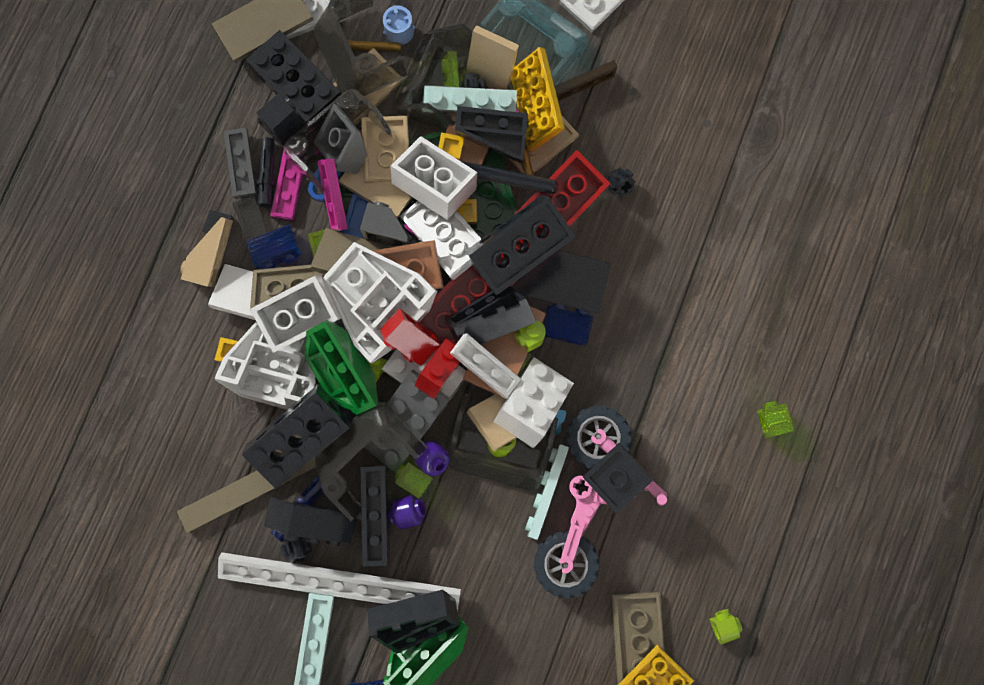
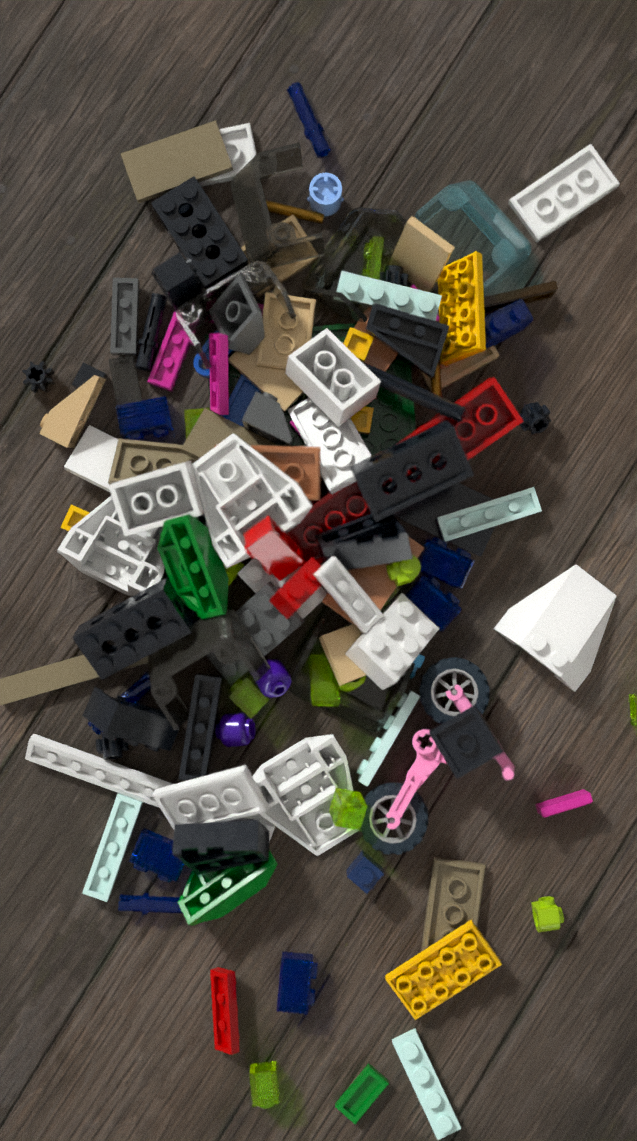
camera: 10 degrees right, 5 degrees up
(166, 233) = (31, 375): none -> black gear
(355, 643) = (156, 854): none -> clear blue brick
(397, 577) = (212, 798): none -> white tile
(478, 452) = (323, 682): none -> clear neon green plate
(484, 558) = (301, 789): none -> white wedge
(523, 563) = (347, 809): none -> clear neon green brick
(550, 620) = (364, 872): none -> dark blue brick
(565, 361) = (433, 602): none -> clear blue brick
(578, 104) = (506, 322): none -> clear blue brick
(597, 274) = (488, 514): none -> light aqua plate
(683, 359) = (561, 624): none -> white wedge
(719, 520) = (564, 803): none -> dark pink tile

